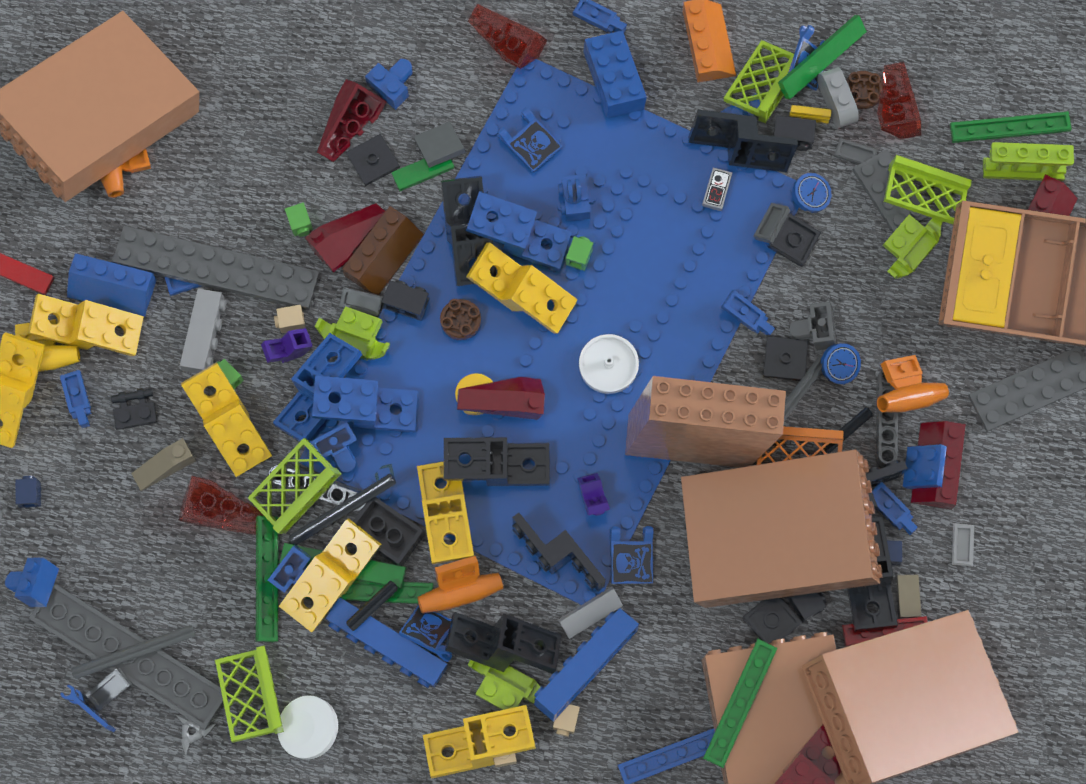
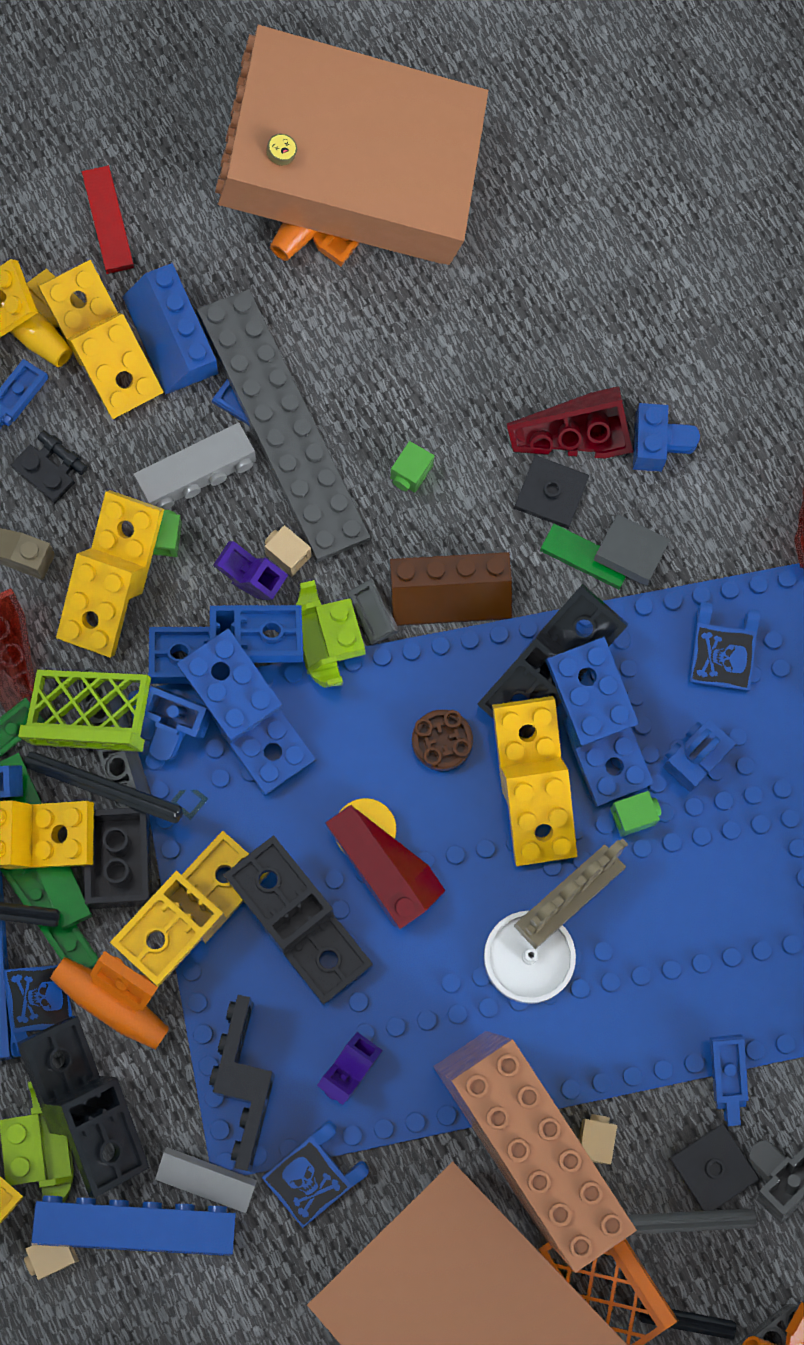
camera: 45 degrees right, 0 degrees up
(71, 141) = (281, 149): none -> tile
(339, 238) = (427, 528): dark red wedge -> none
(405, 299) = (413, 659): black brick -> none
(594, 316) = (572, 894): none -> dark tan fence
(840, 363) = (763, 1245): blue tile -> none

